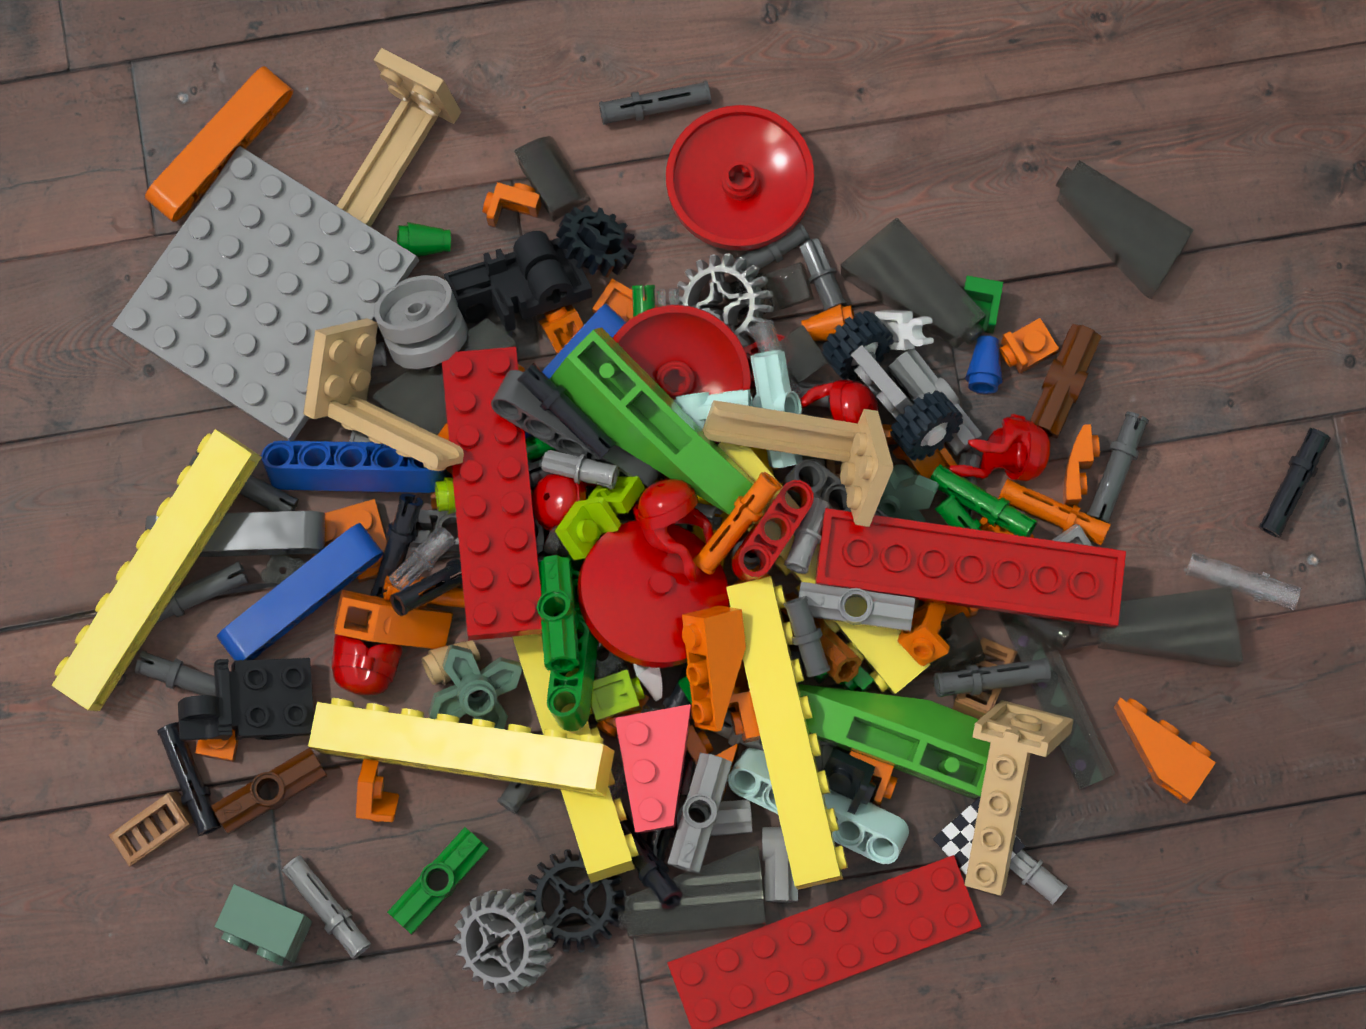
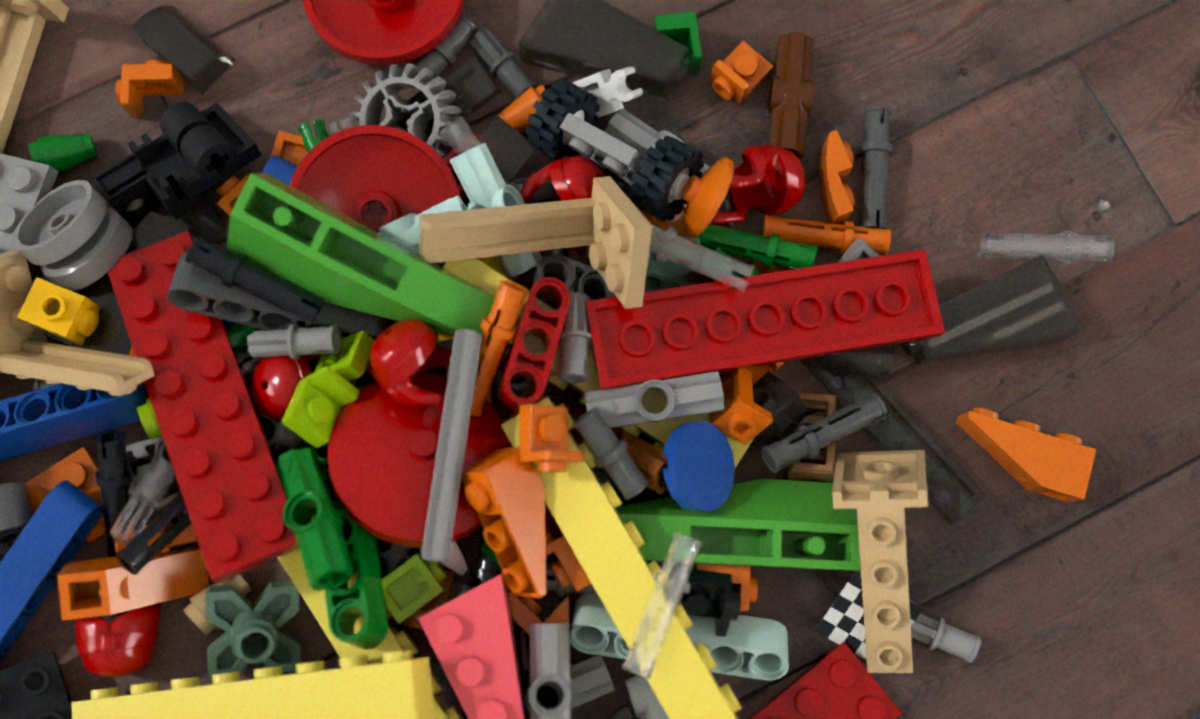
camera: 25 degrees left, 0 degrees up
(395, 384) = (60, 311): none -> yellow brick
(596, 241) = (248, 95): black gear -> none
(683, 590) = (451, 446): none -> light grey axle
(758, 608) = (545, 438): none -> orange bracket
(810, 764) = (678, 562): none -> clear pin
(876, 670) = (699, 466): none -> blue tile
(910, 484) = (698, 258): none -> clear pin
(953, 450) = (706, 195): none -> orange dish
(985, 366) = (703, 108): blue cone -> none
(1298, 475) = (1063, 114): black pin -> none

